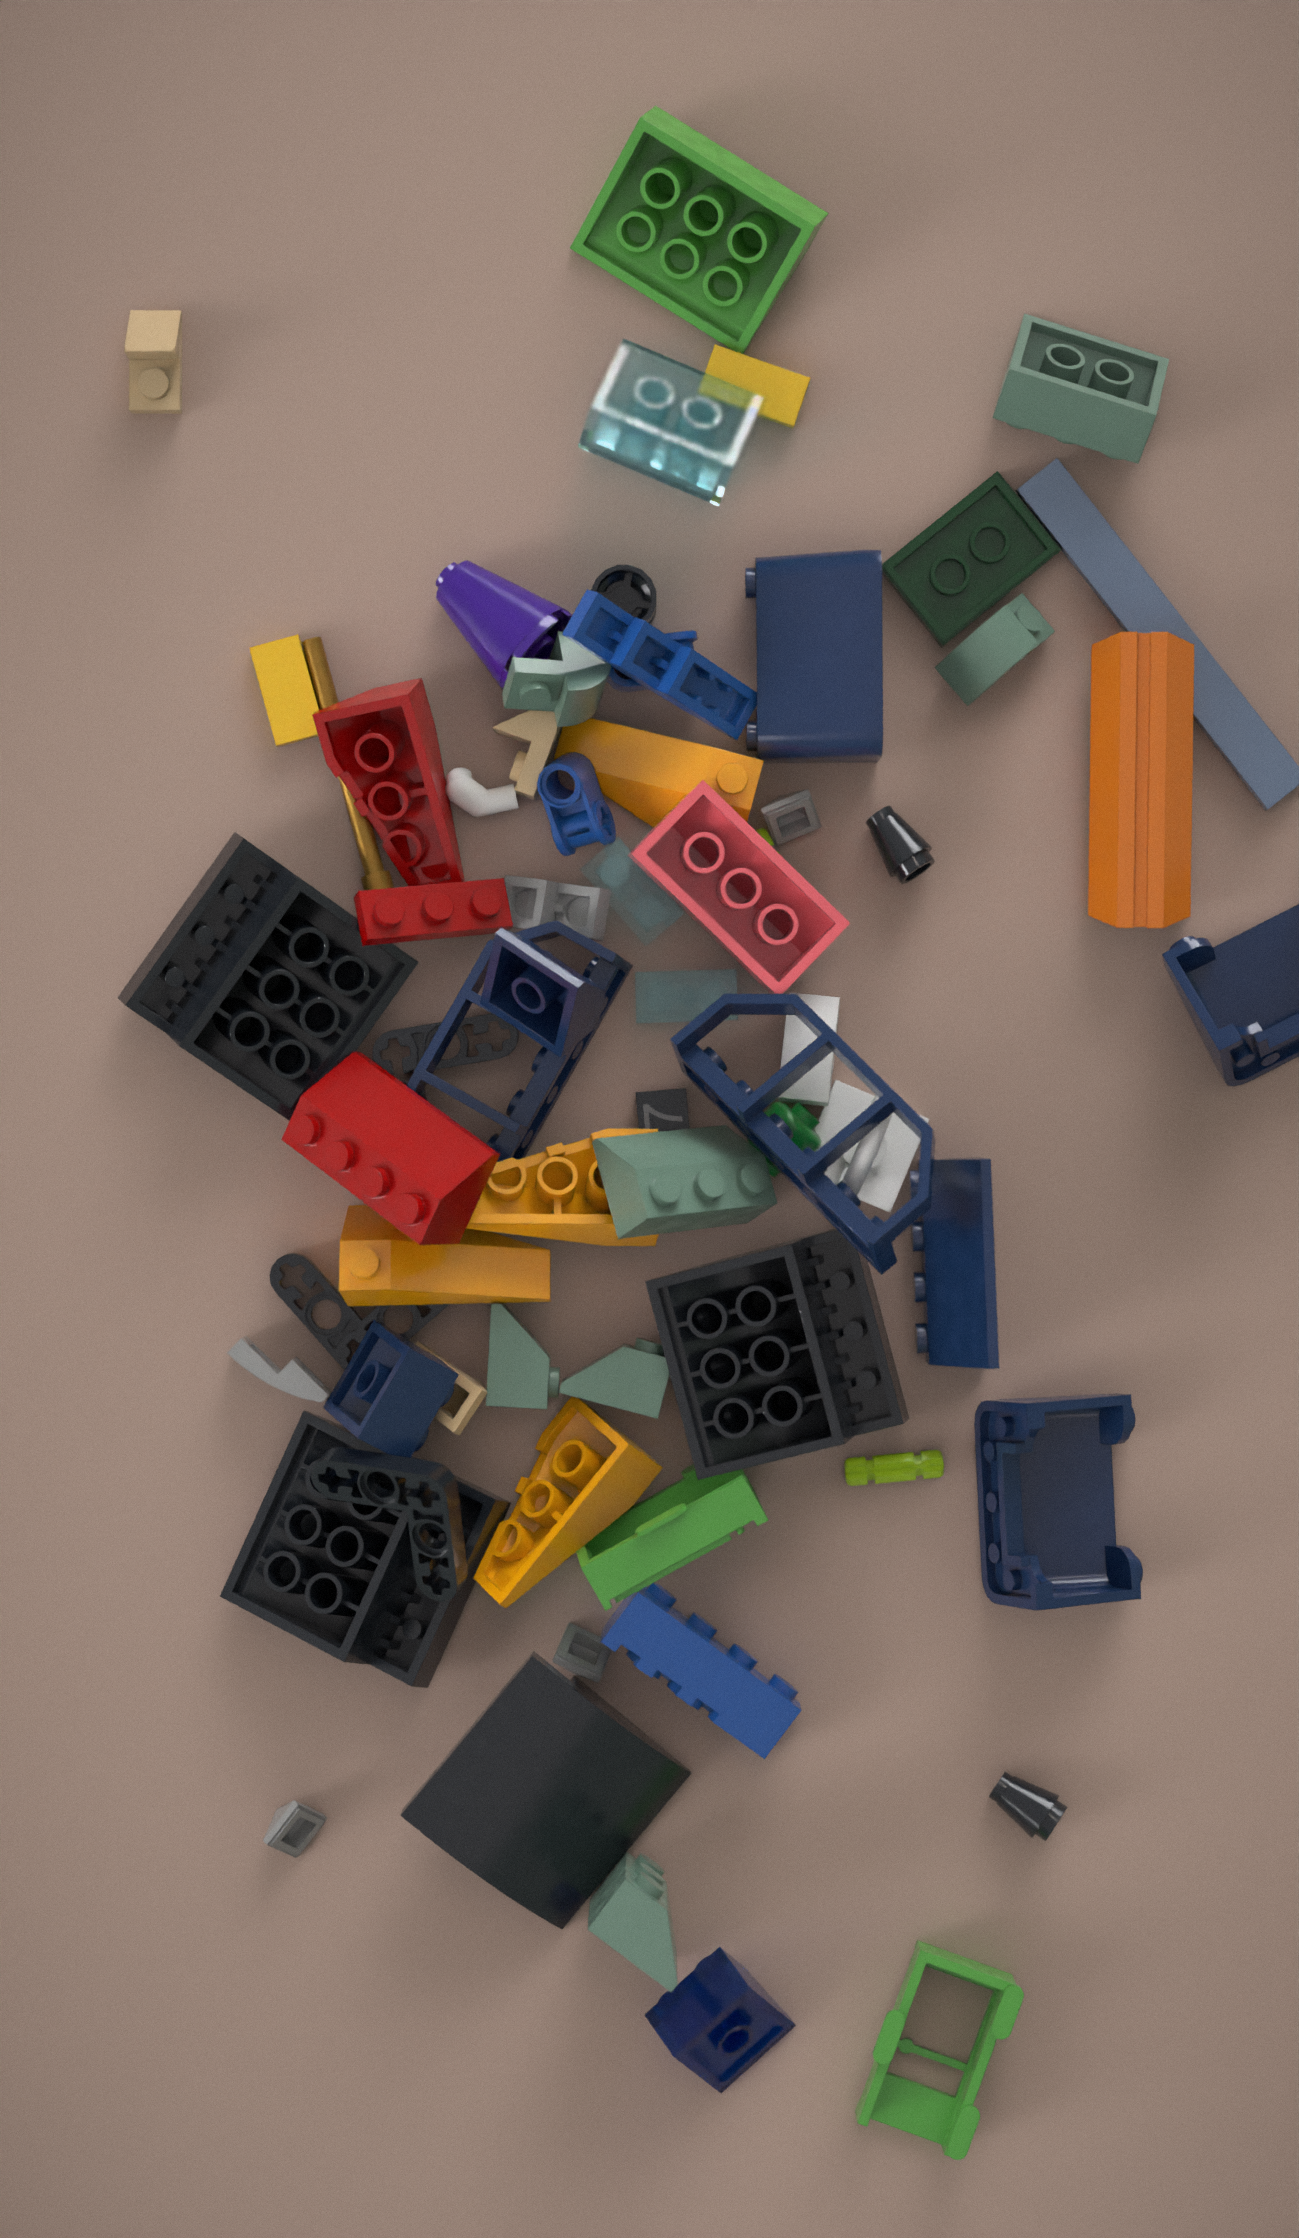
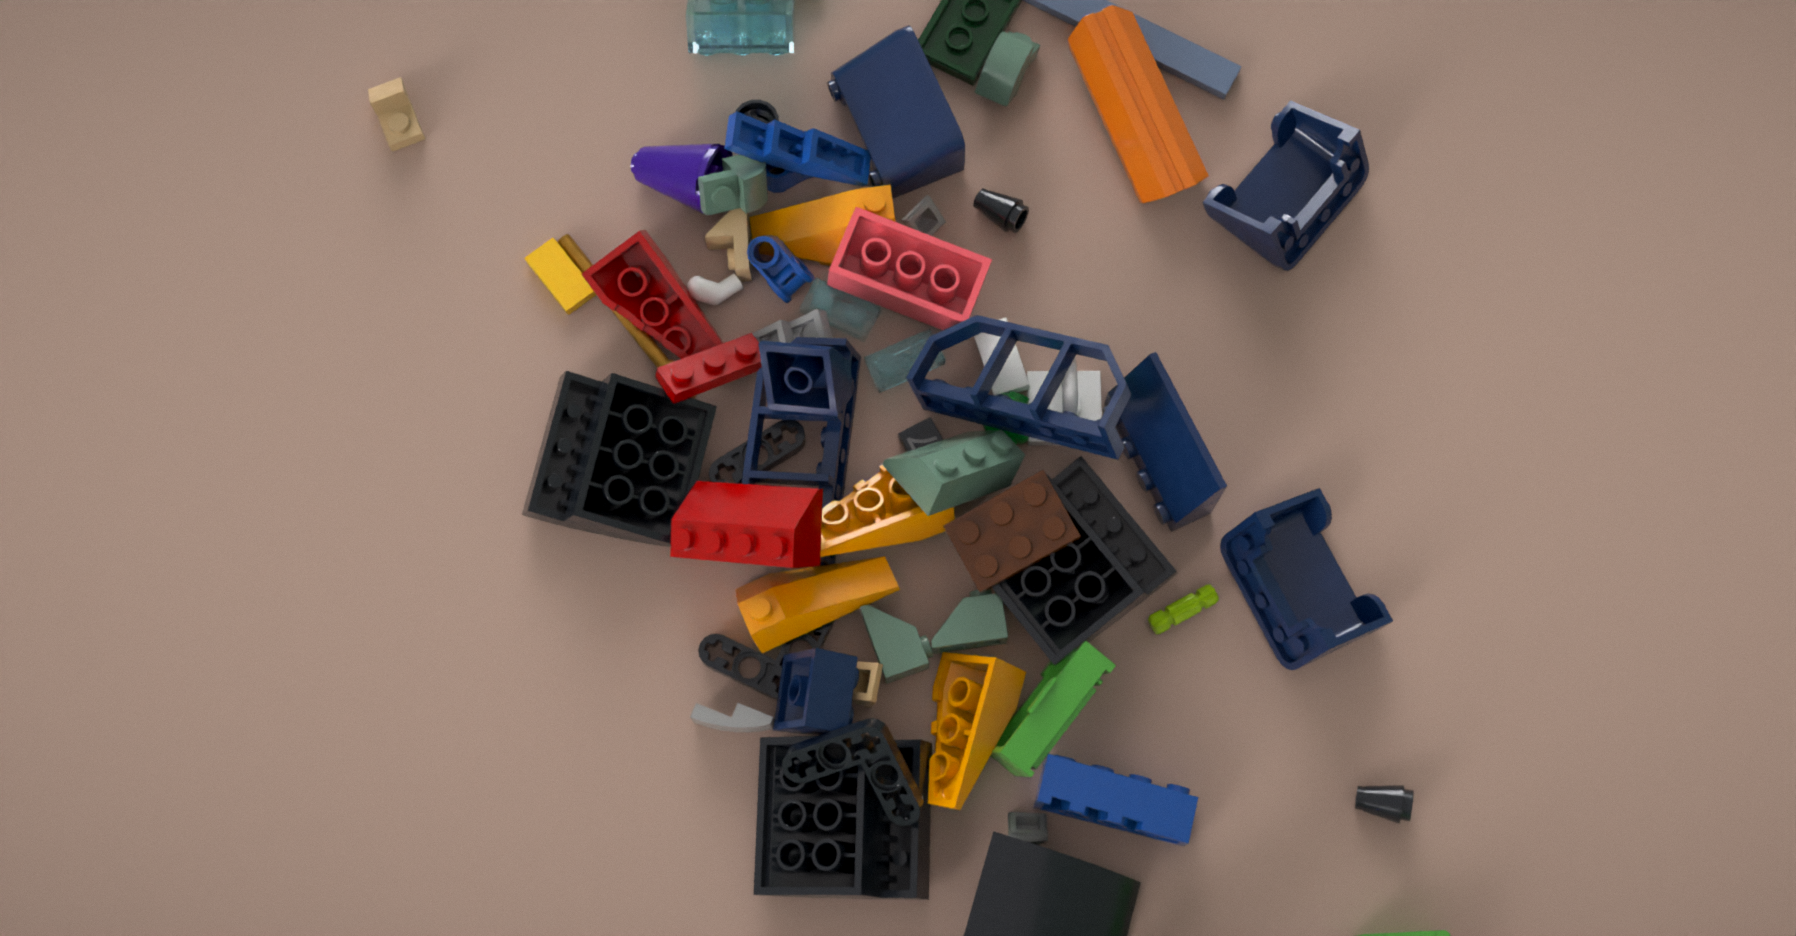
camera: 20 degrees left, 15 degrees down
(716, 1296) = (1012, 531): none -> reddish brown plate

